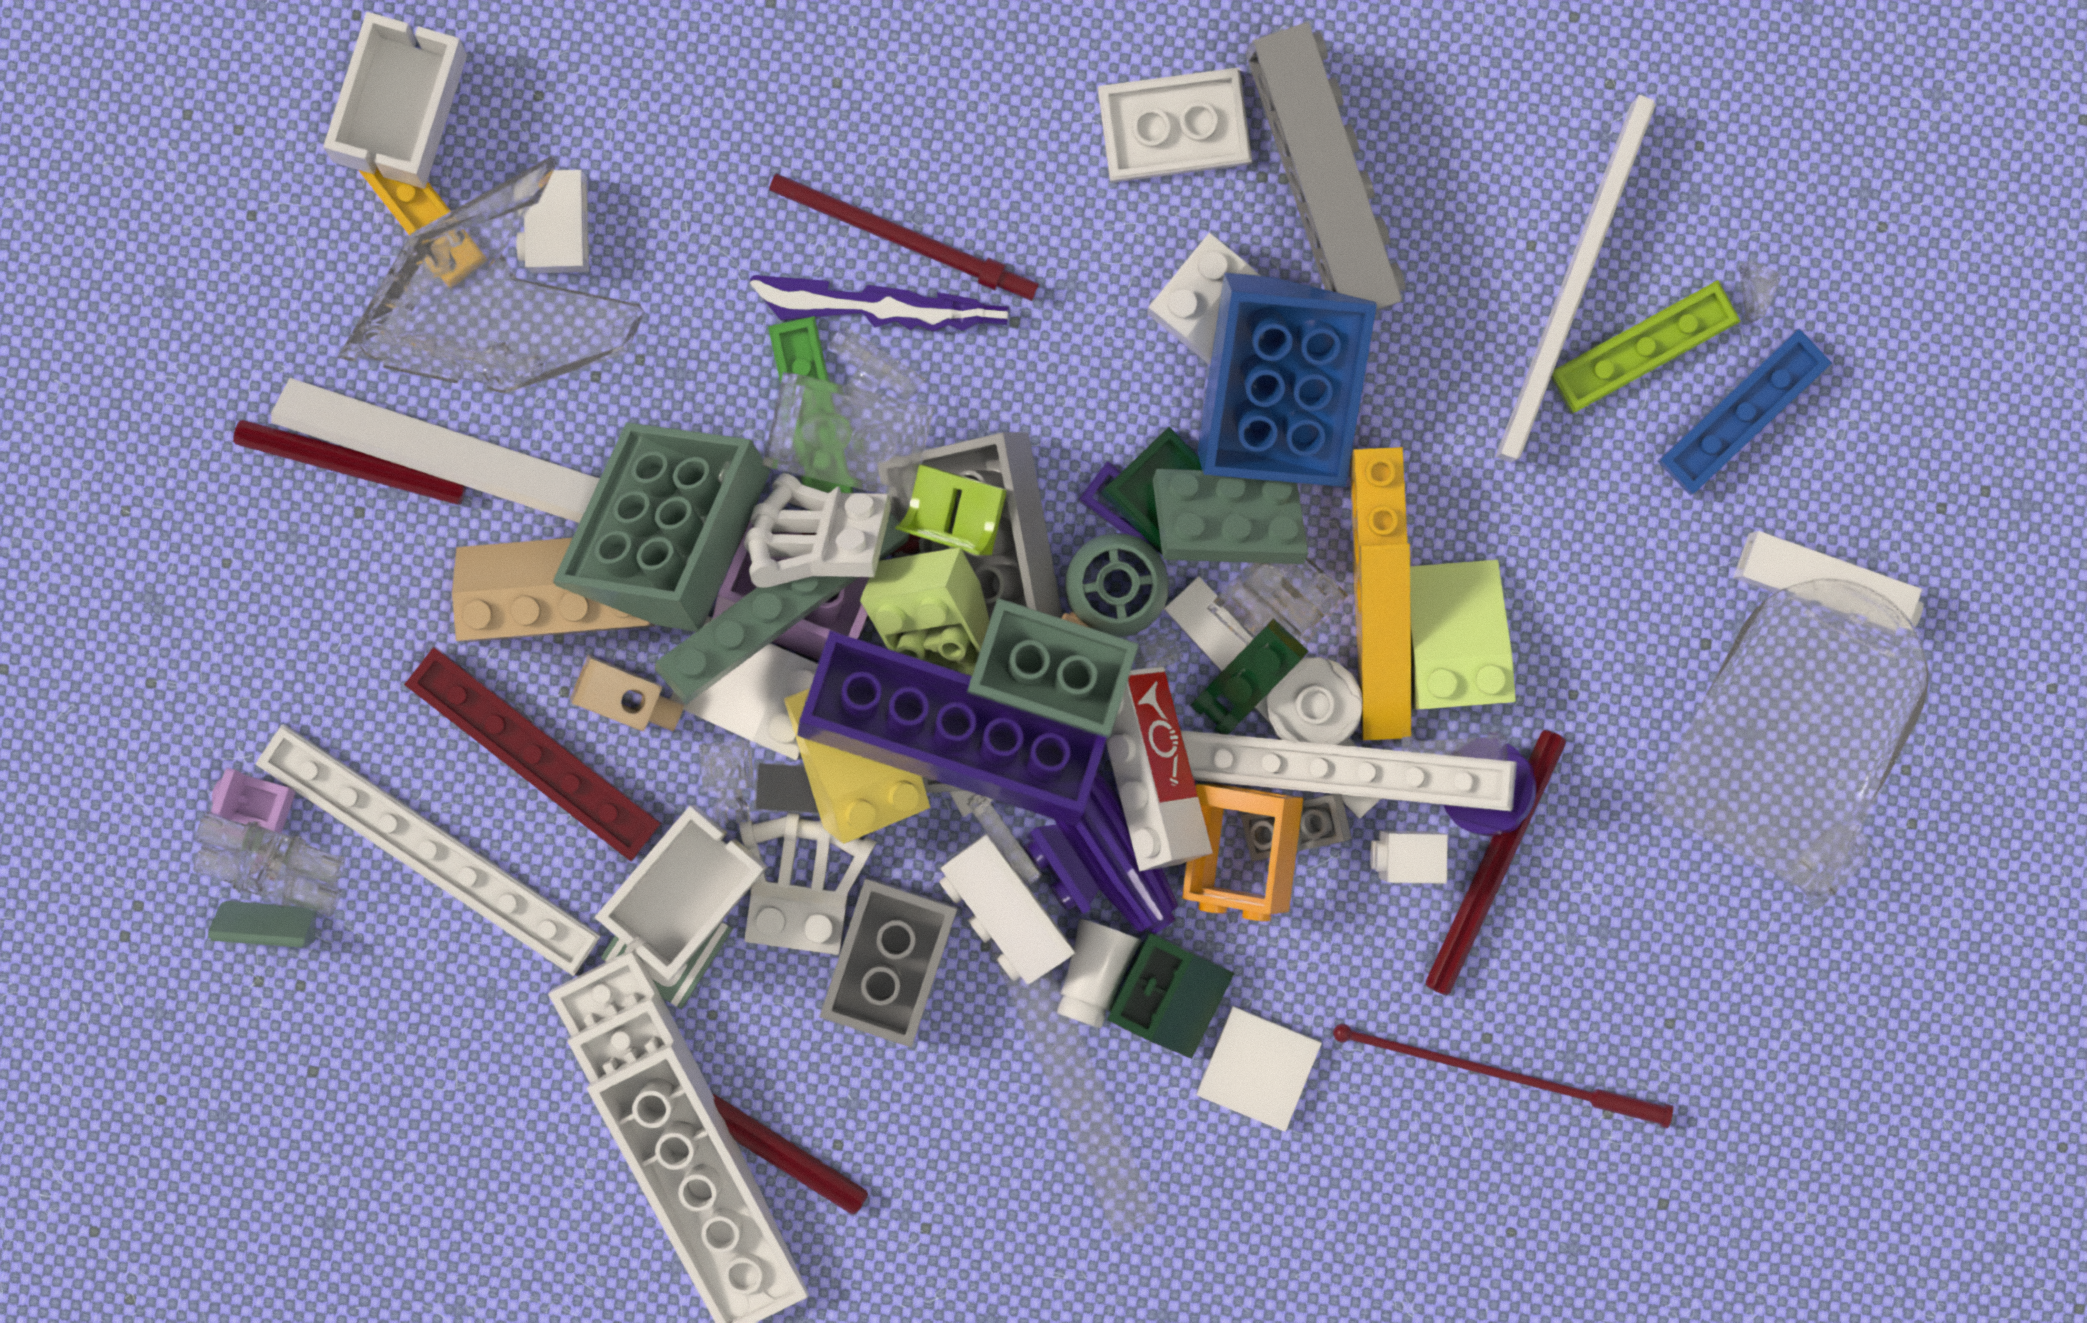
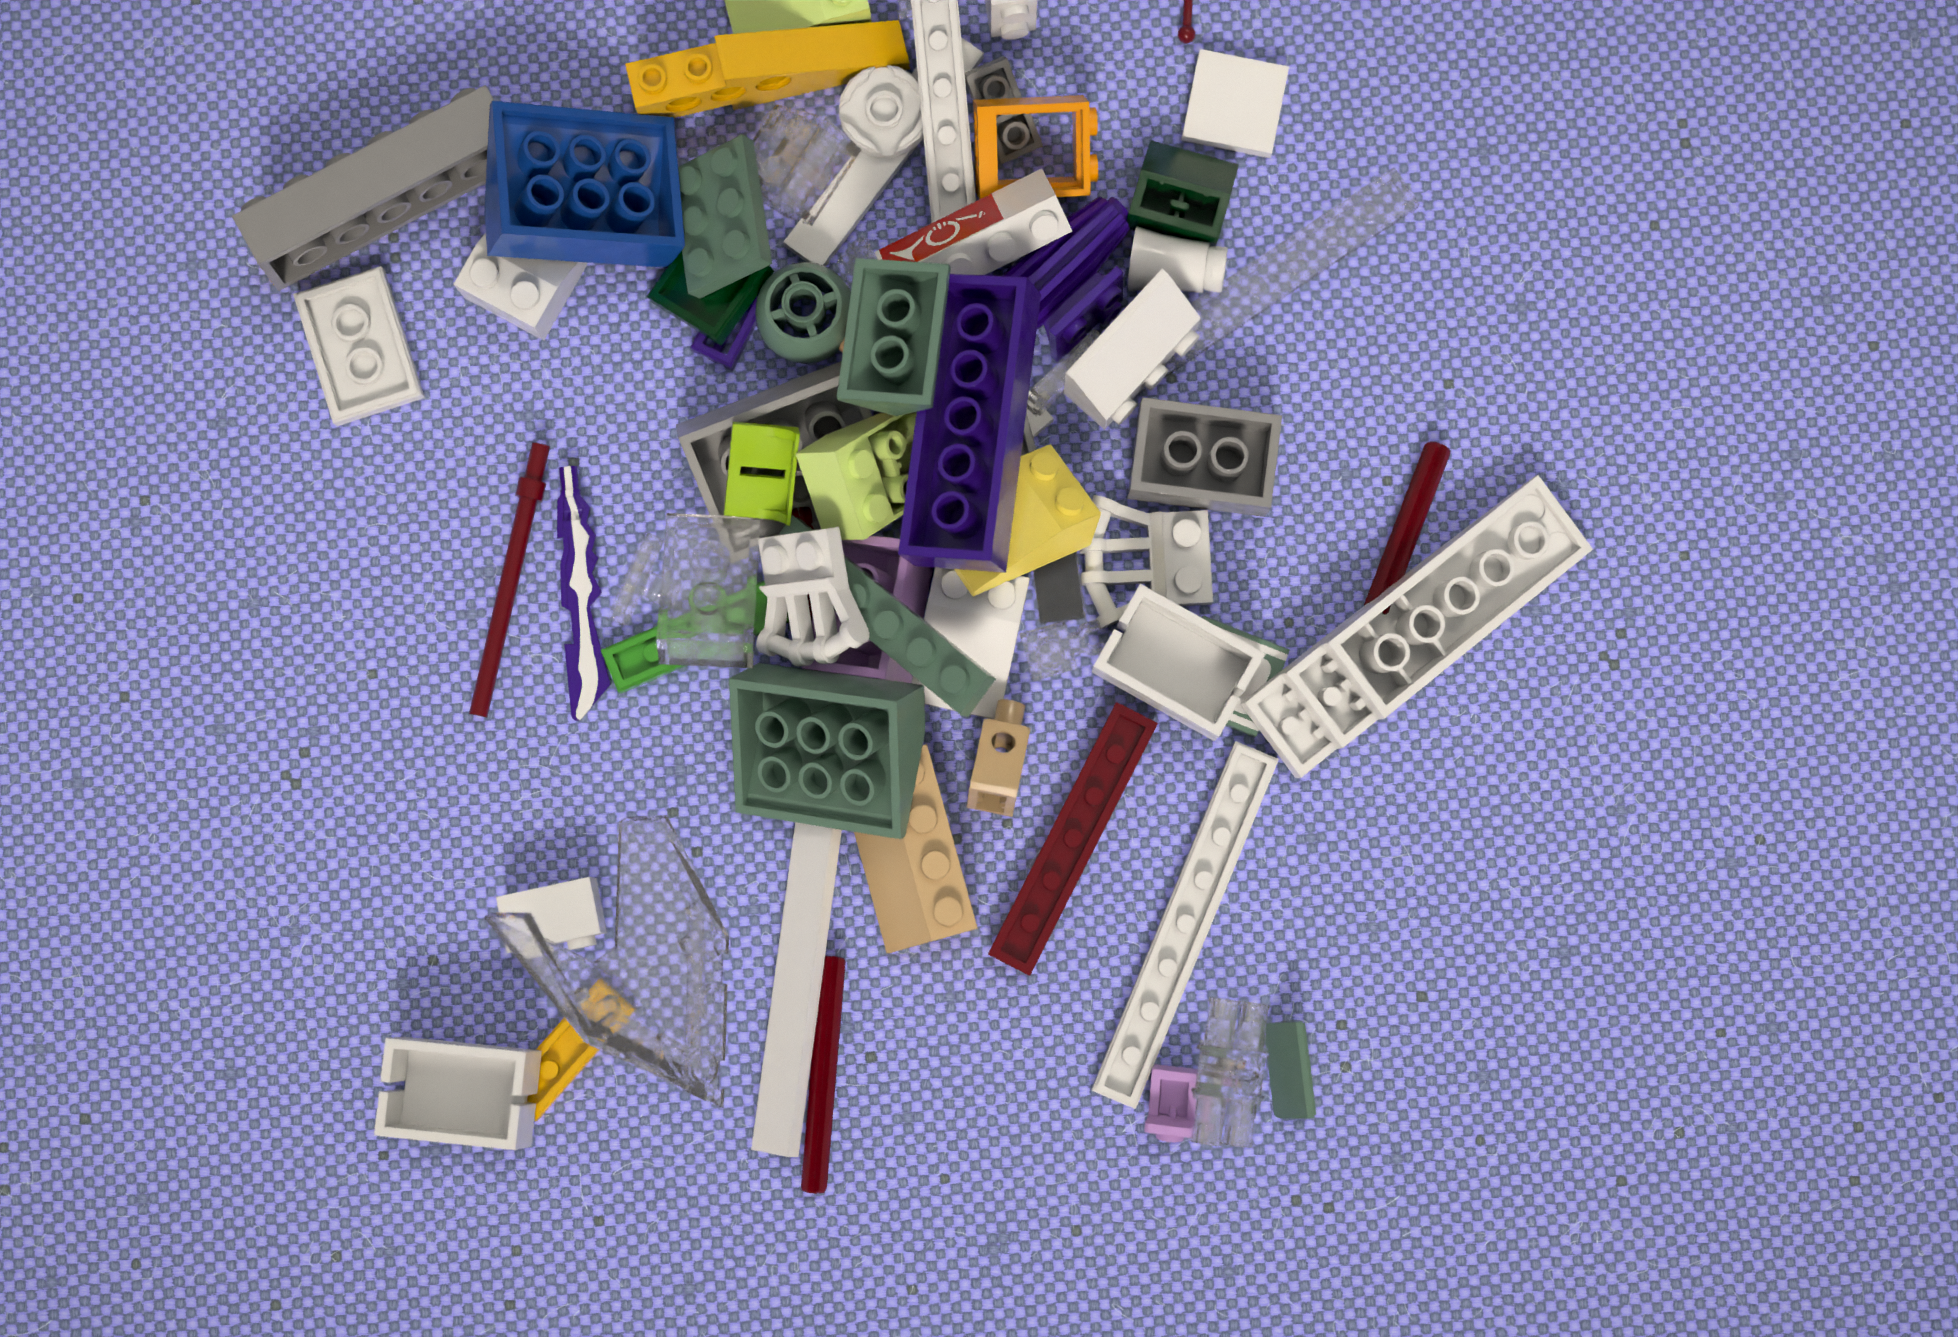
camera: 100 degrees left, 5 degrees down
(1250, 676) = (869, 171): dark green plate -> none

